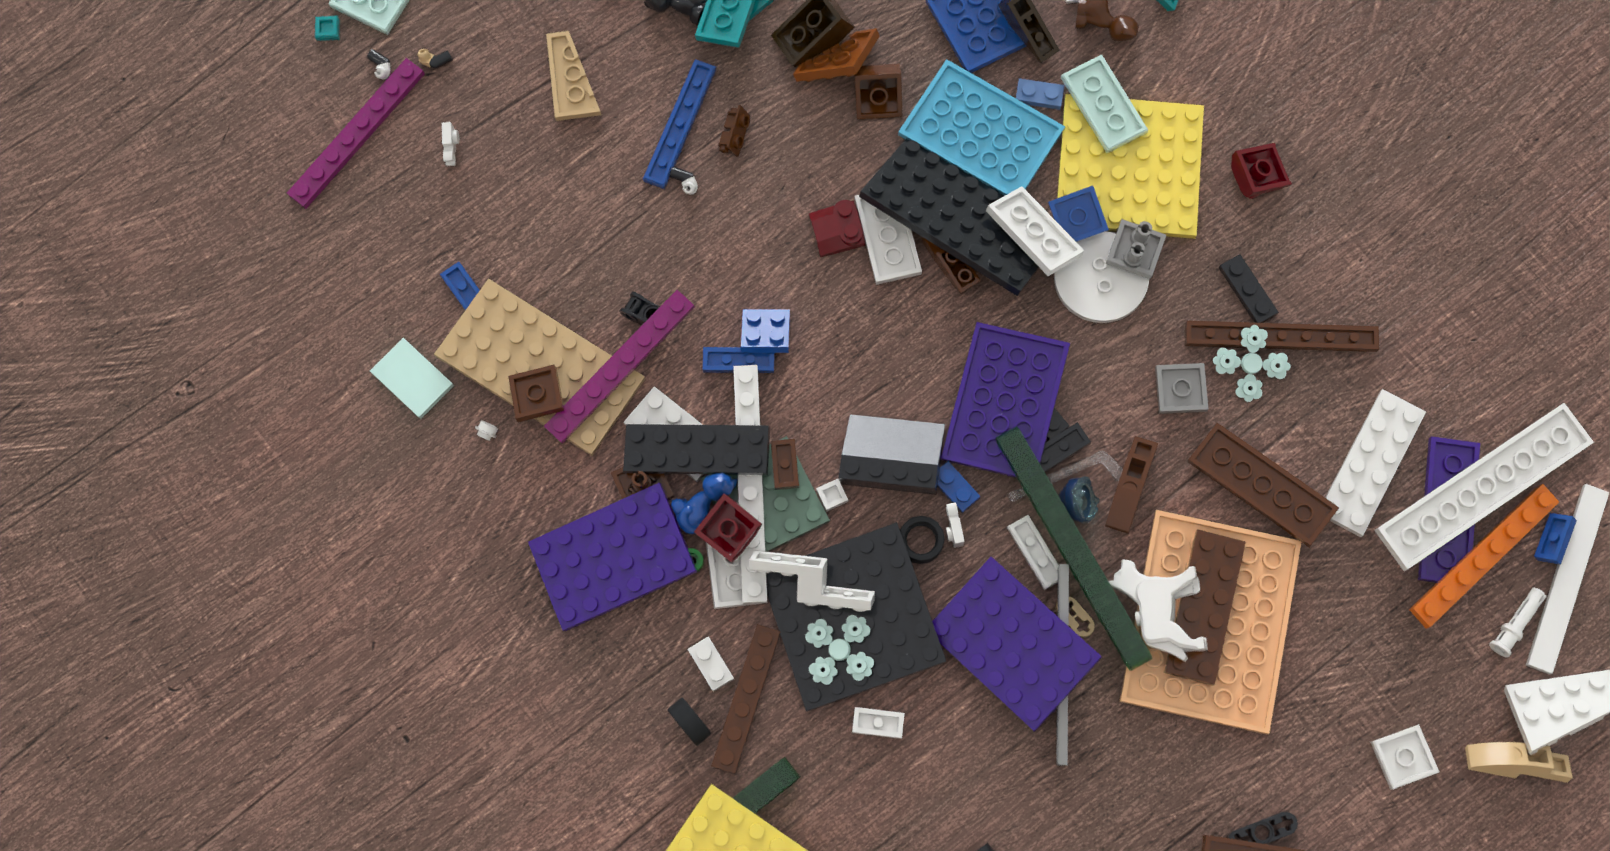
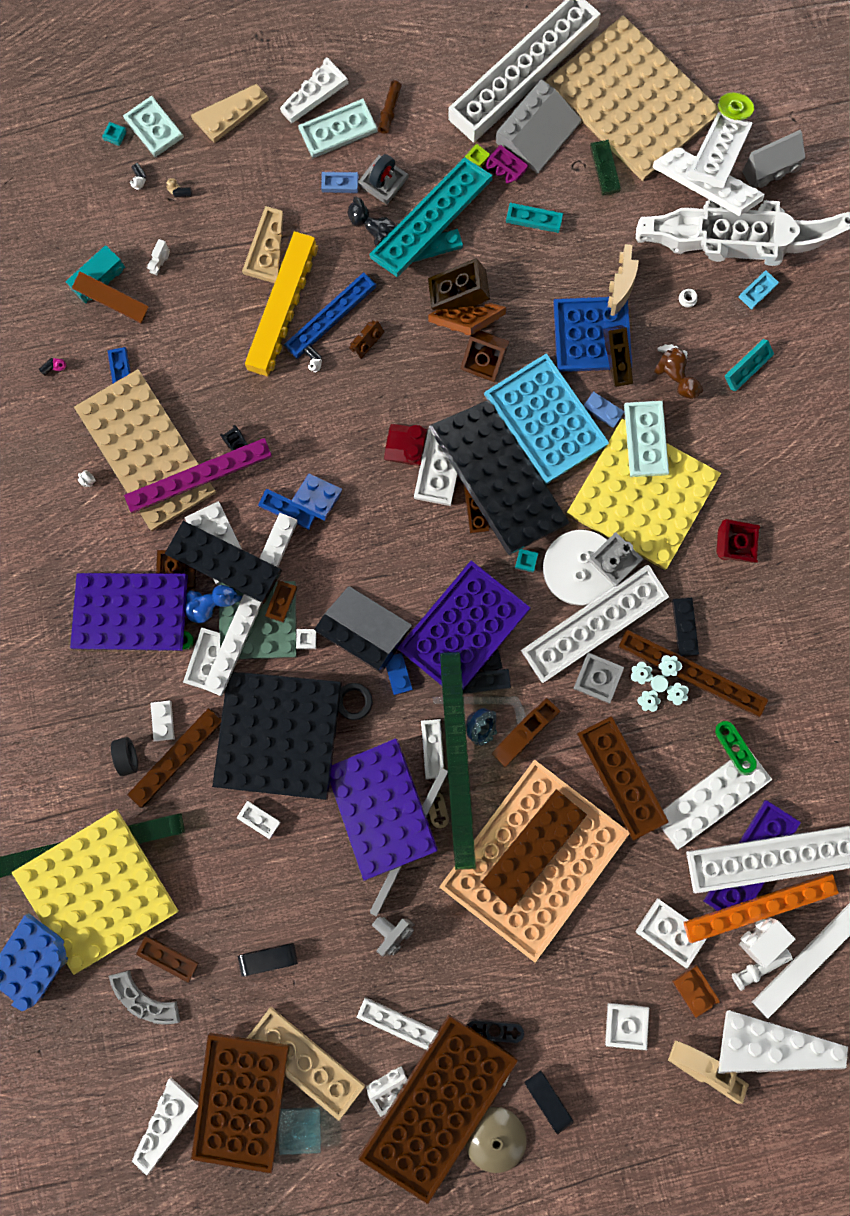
camera: 25 degrees right, 5 degrees up
(355, 133) = (98, 220): magenta plate -> none
(383, 318) = (52, 364): none -> arm
(384, 194) = (101, 266): none -> teal brick
(411, 378) = (52, 417): light aqua tile -> none
(416, 212) = (110, 297): none -> dark orange tile
(536, 393) = (128, 468): reddish brown plate -> none
(618, 135) = (281, 304): none -> yellow brick
(728, 528) = (216, 630): dark red slope -> none
(812, 580) = (256, 696): white bracket -> none
(839, 649) = (254, 755): light aqua plant -> none
(954, 531) = (380, 707): white plate -> none
(1035, 231) = (545, 512): white plate -> none
(1037, 295) = (526, 560): none -> teal plate
(1079, 214) = (584, 515): blue plate -> none
(1096, 776) = (392, 934): none -> light grey plate
(1147, 330) = (594, 623): none -> white plate
(1157, 607) = (497, 833): white animal -> none
(1364, 386) = (732, 740): none -> green plate
(1397, 631) = (667, 932): none -> white plate
(1459, 682) = (695, 991): none -> dark orange plate
(1508, 588) = (766, 941): none -> white brick
(1555, 538) = (821, 919): blue plate -> none

